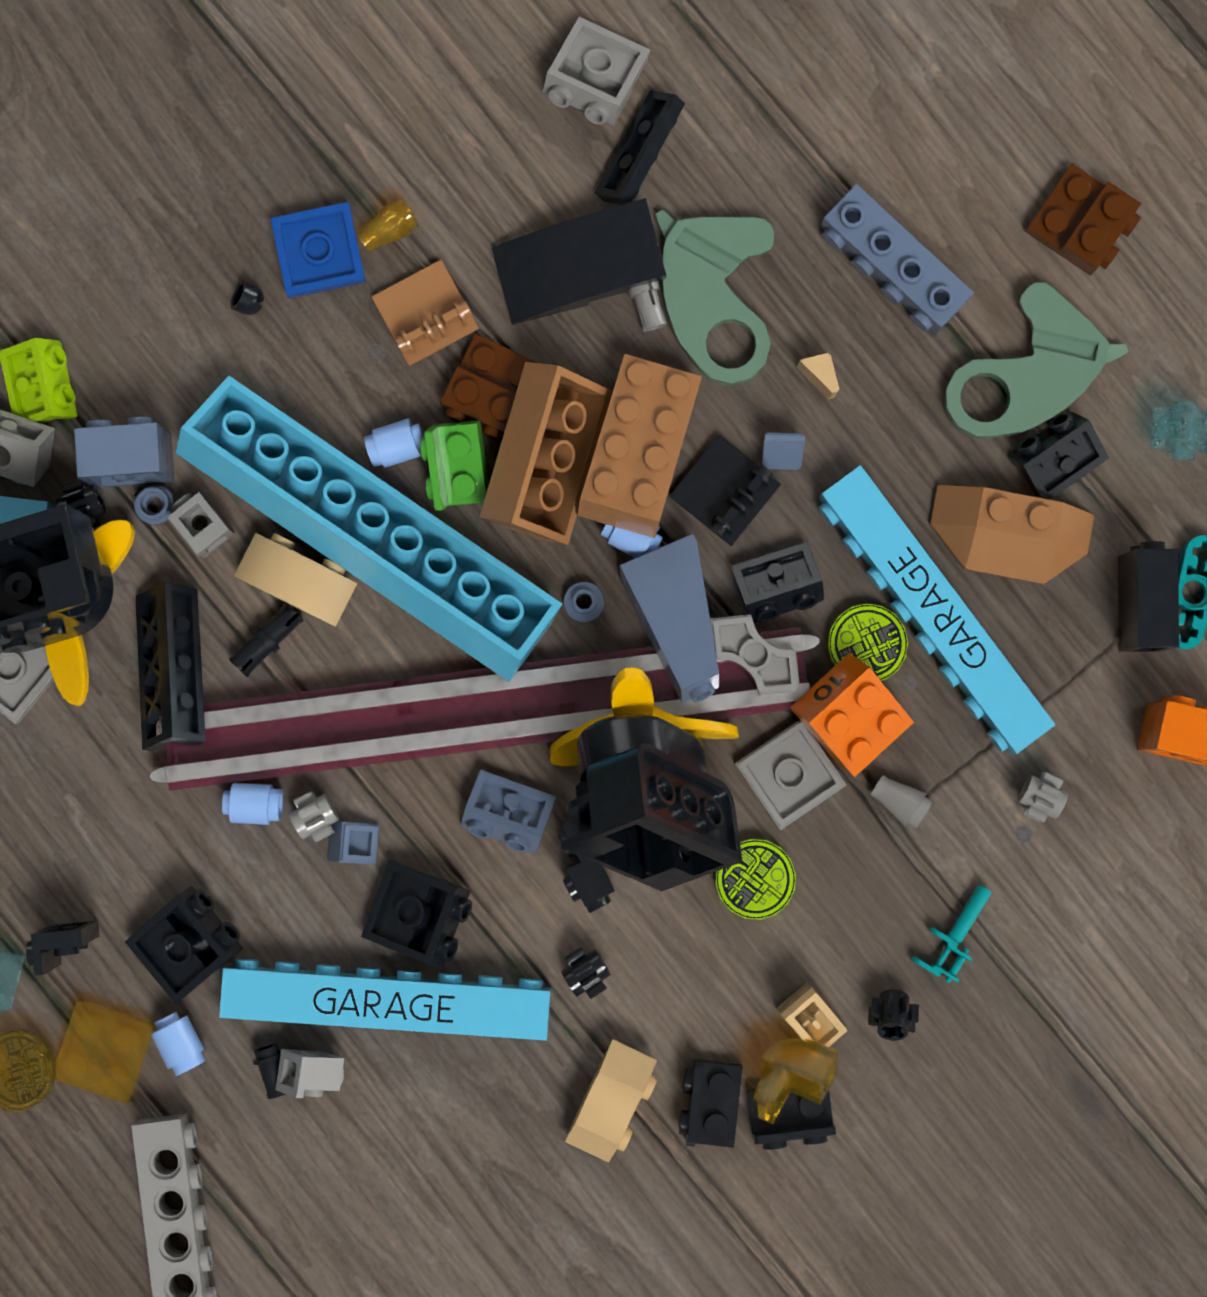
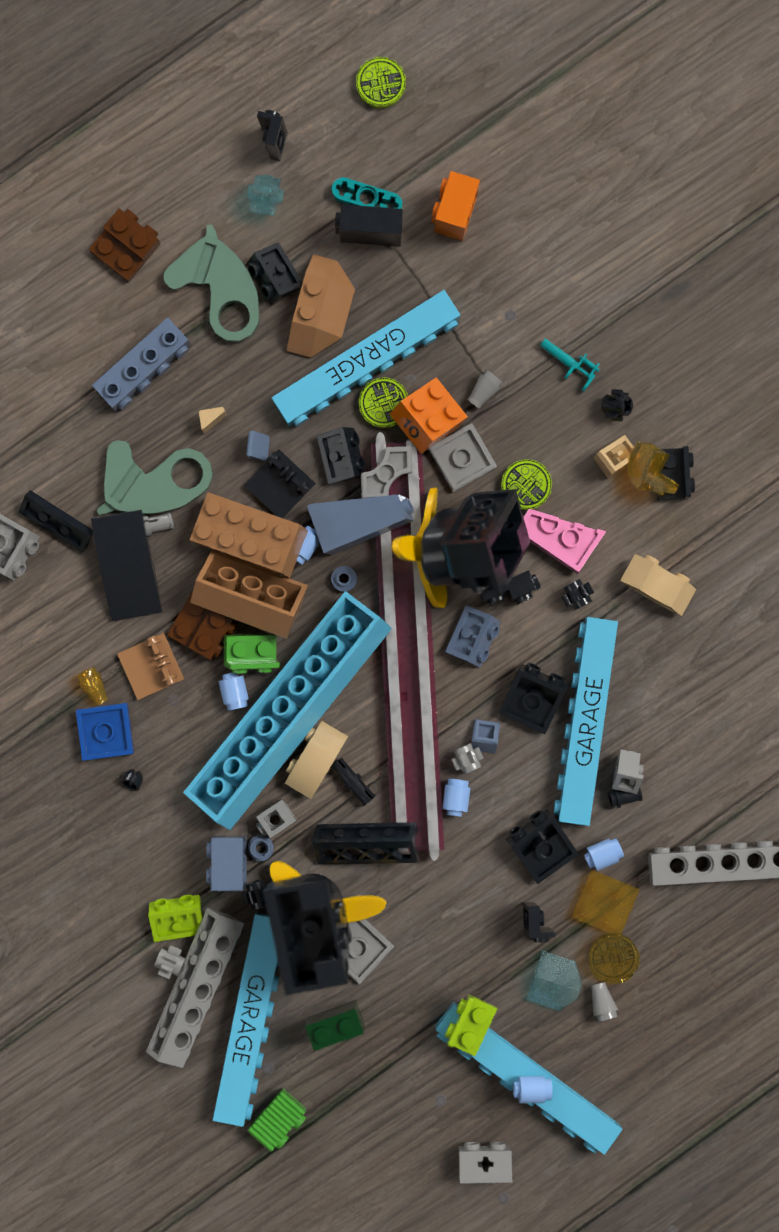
camera: 80 degrees left, 0 degrees up
(672, 941) = (562, 540): none -> bright pink wing
(712, 1103) = (664, 522): black bracket -> none
(1043, 797) = (488, 301): light grey gear -> none

